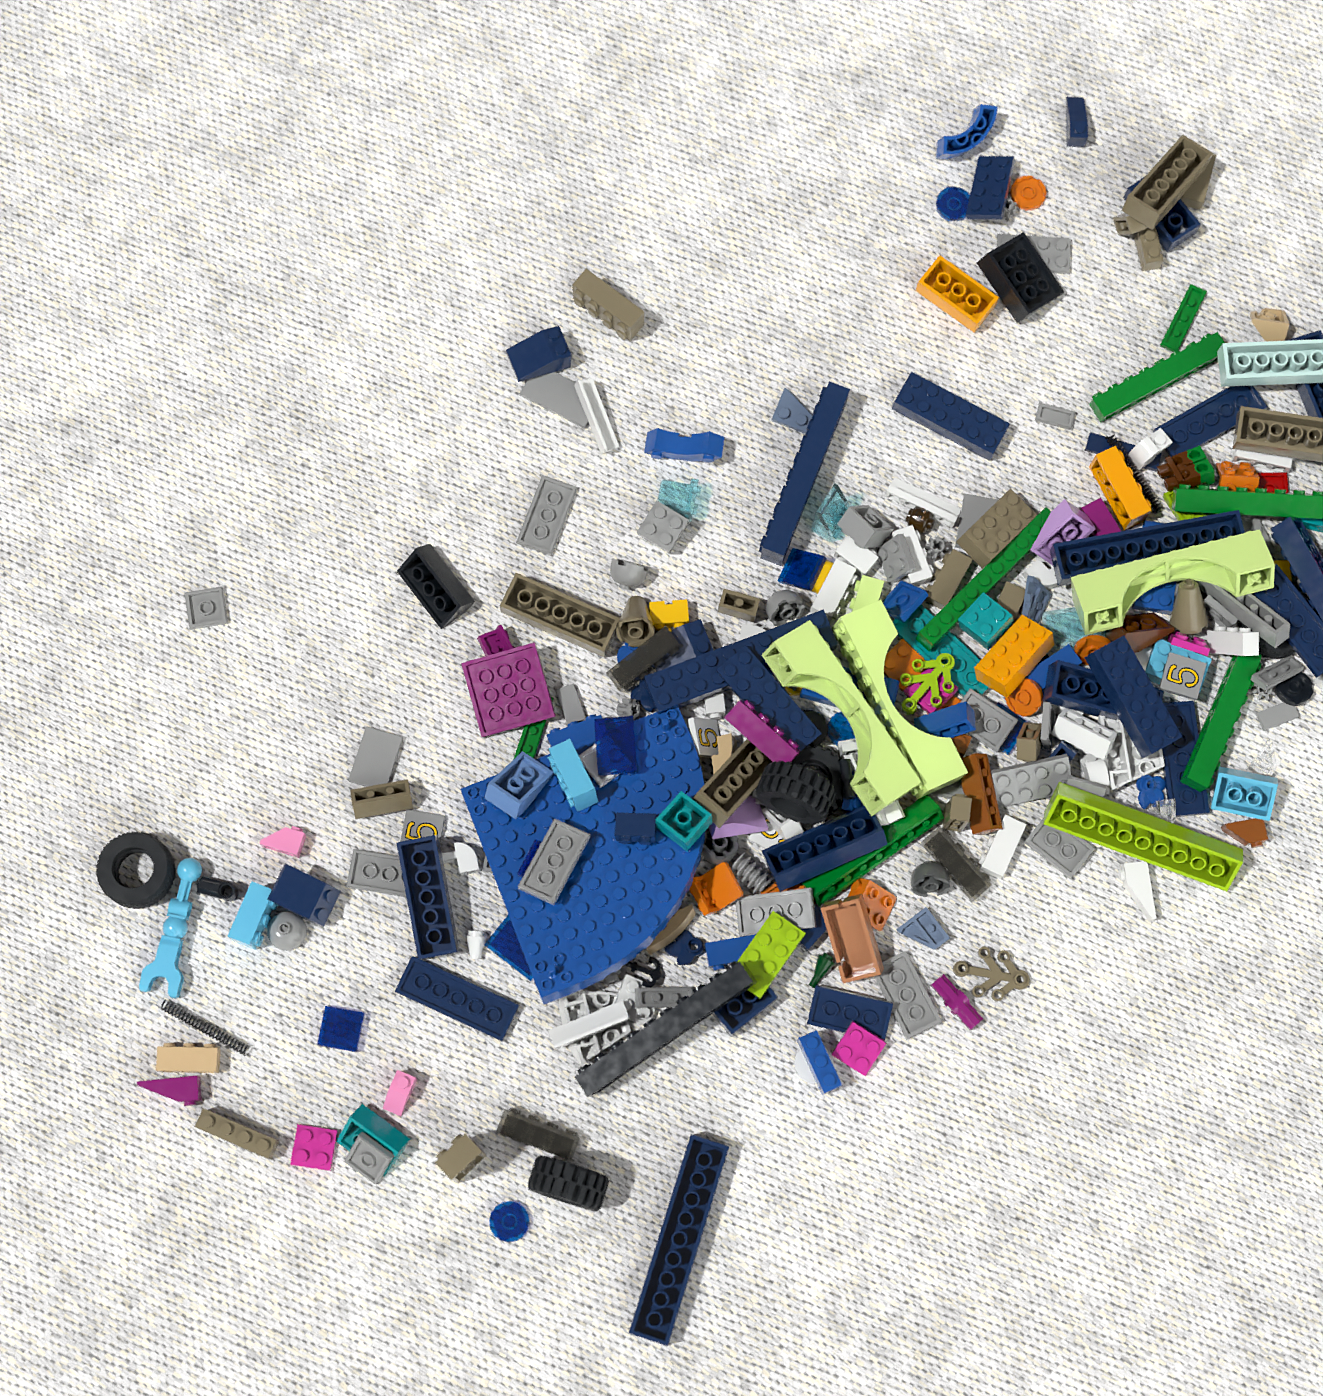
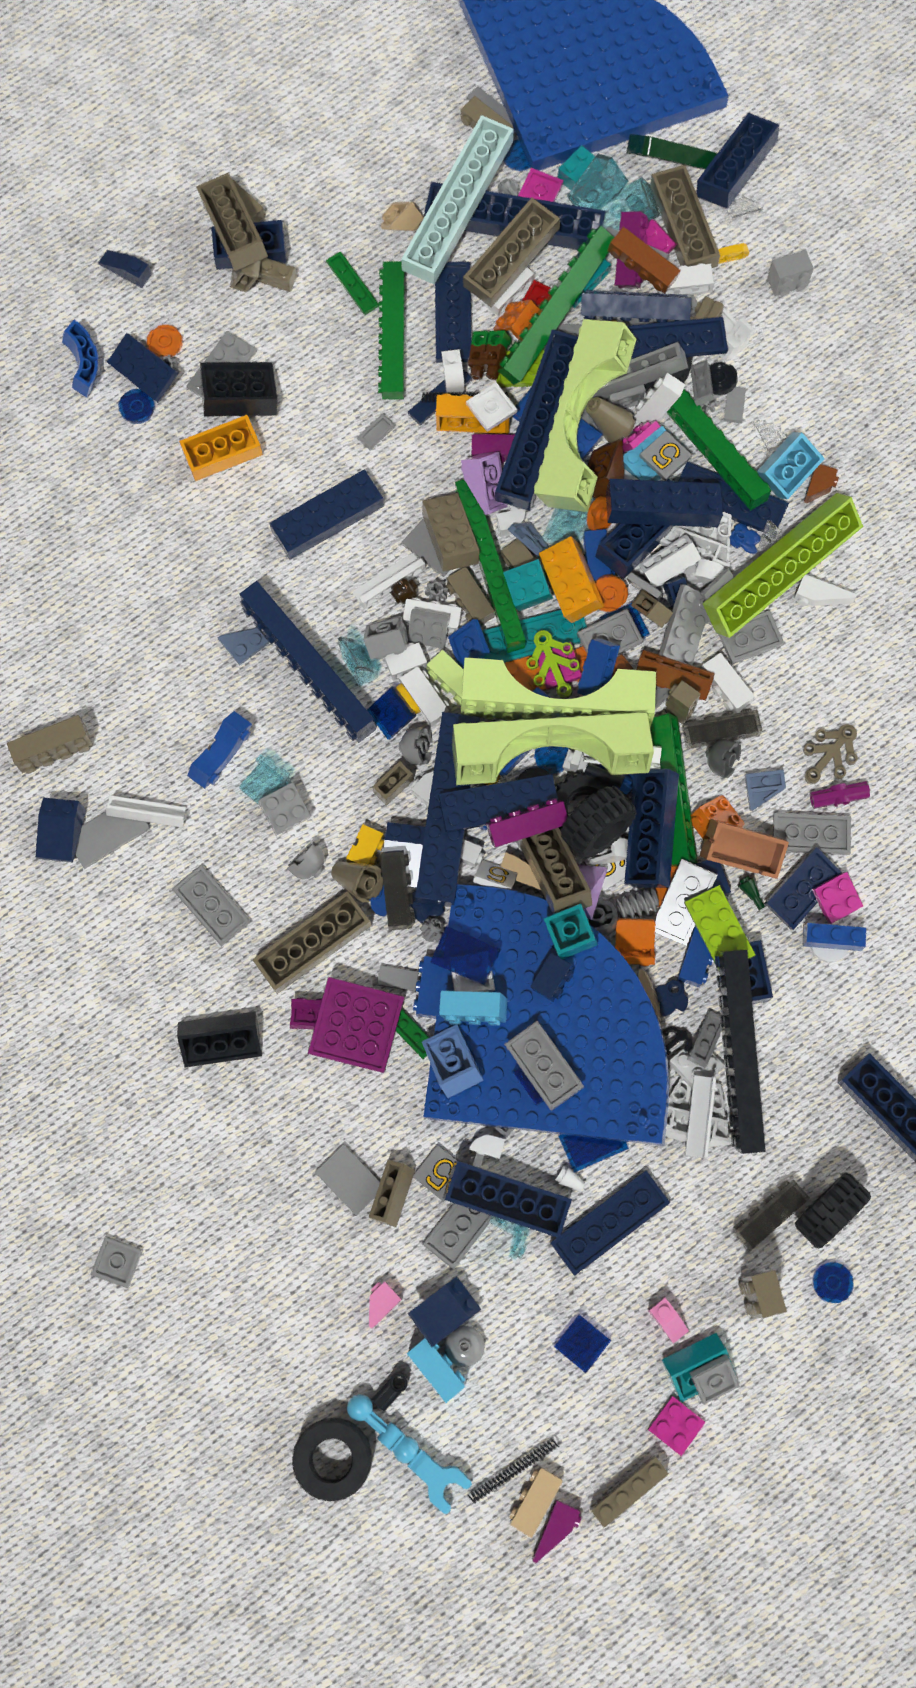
camera: 55 degrees left, 0 degrees up
(394, 929) = (518, 1249): none -> clear light blue bracket
(1132, 498) = (491, 406): none -> white tile

